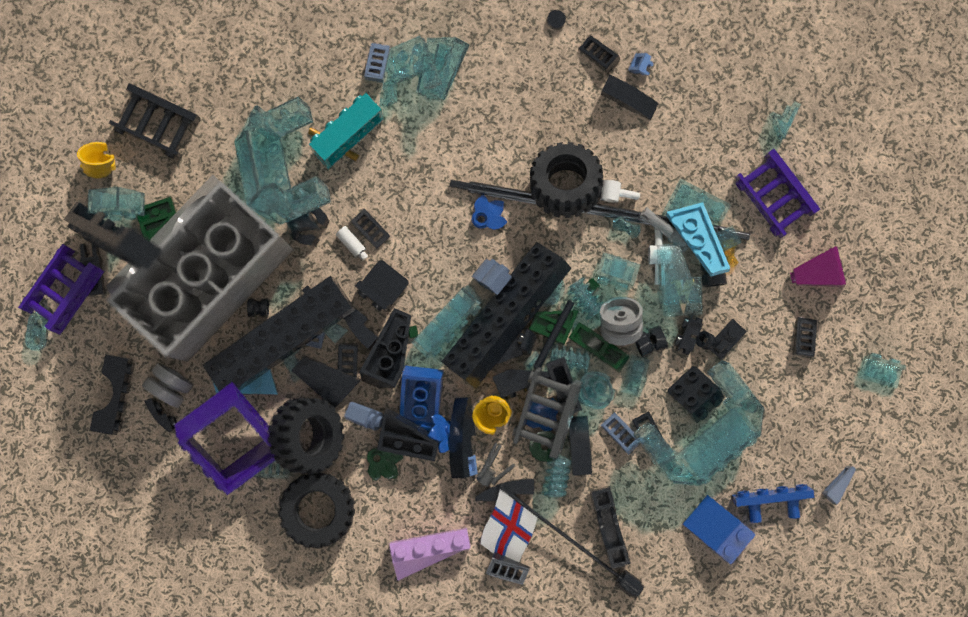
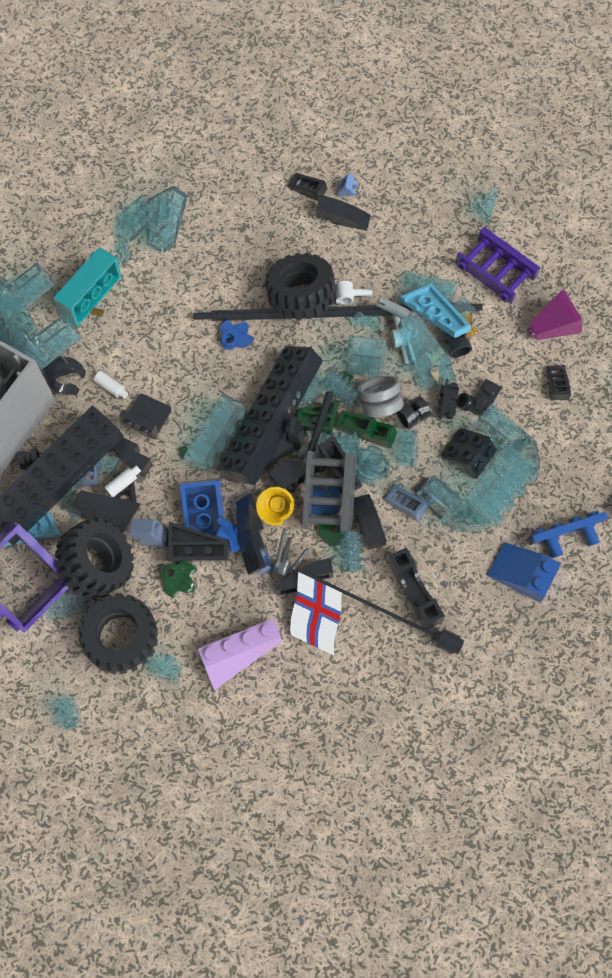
camera: 10 degrees left, 15 degrees down
(256, 575) = (67, 713): none -> clear light blue brick
(346, 355) = (122, 480): none -> white cylinder
(356, 552) = (167, 669): none -> clear light blue brick
(357, 217) = (122, 374): black slope -> none
(375, 76) = (107, 242): sand blue slope -> none
(388, 354) = (162, 474): black wedge -> none
(492, 275) = (249, 383): sand blue brick -> none
(505, 575) = (309, 643): black slope -> none
(556, 19) = (262, 166): black tile -> none

